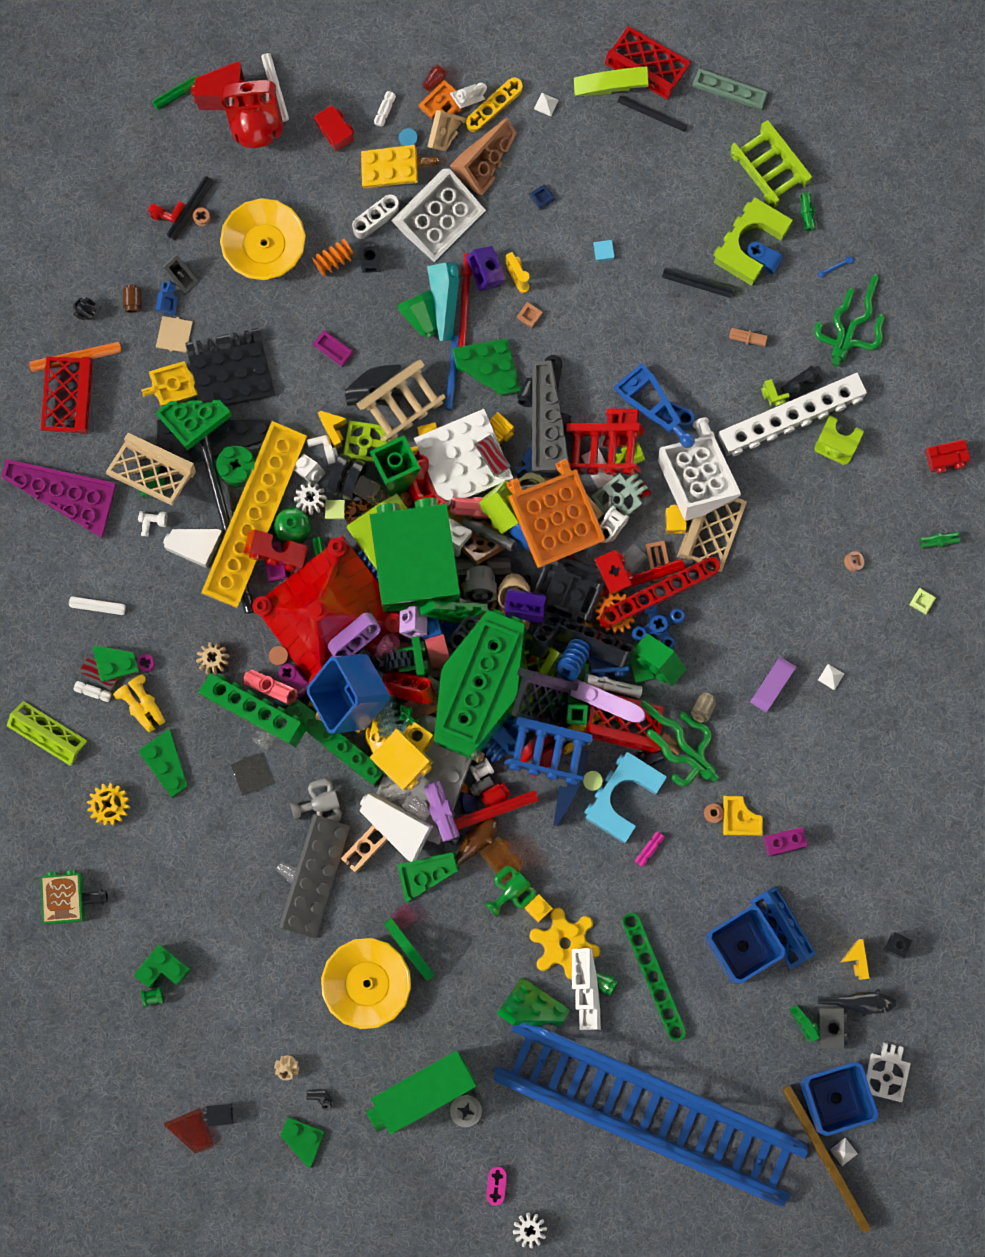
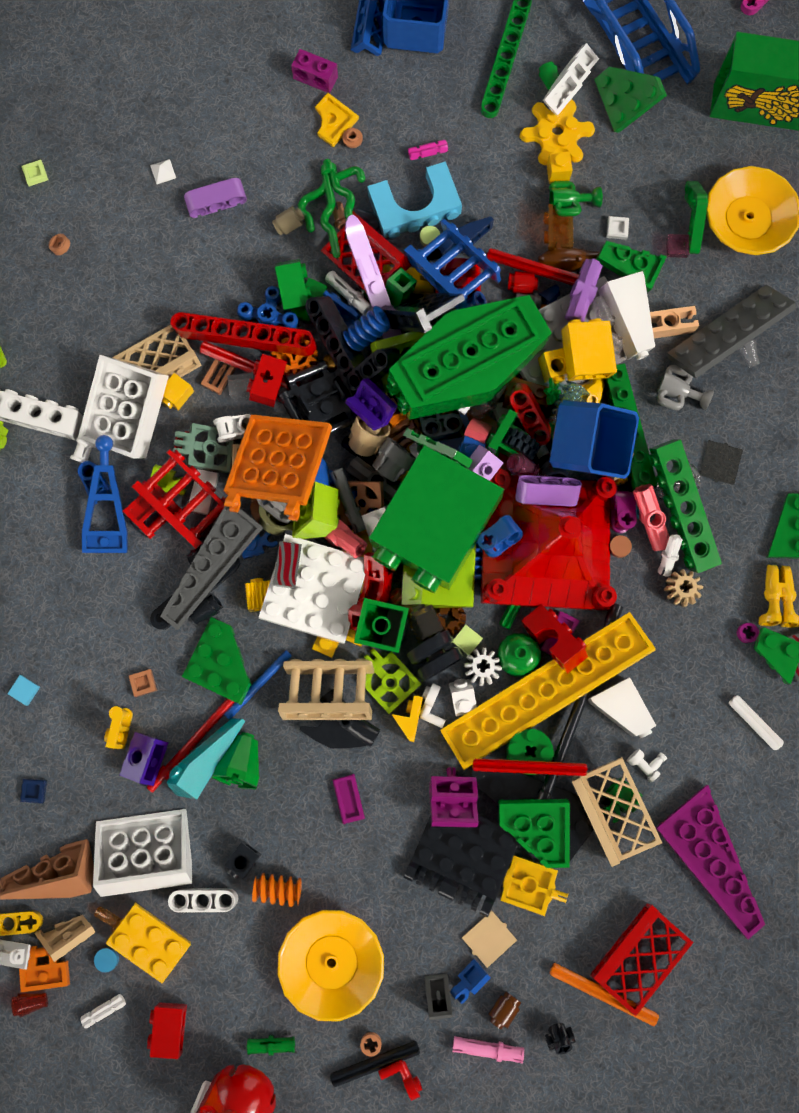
camera: 145 degrees left, 0 degrees up
(124, 269) = (487, 1049): none -> bright pink pin
(228, 450) = (529, 767): none -> red axle
(238, 671) = (670, 555): none -> white axle
(262, 395) = (453, 800): none -> magenta plate
(263, 169) = (271, 1045): none -> green pin
(363, 581) = (501, 535): none -> blue piece
(459, 898) = (617, 227): none -> white tile

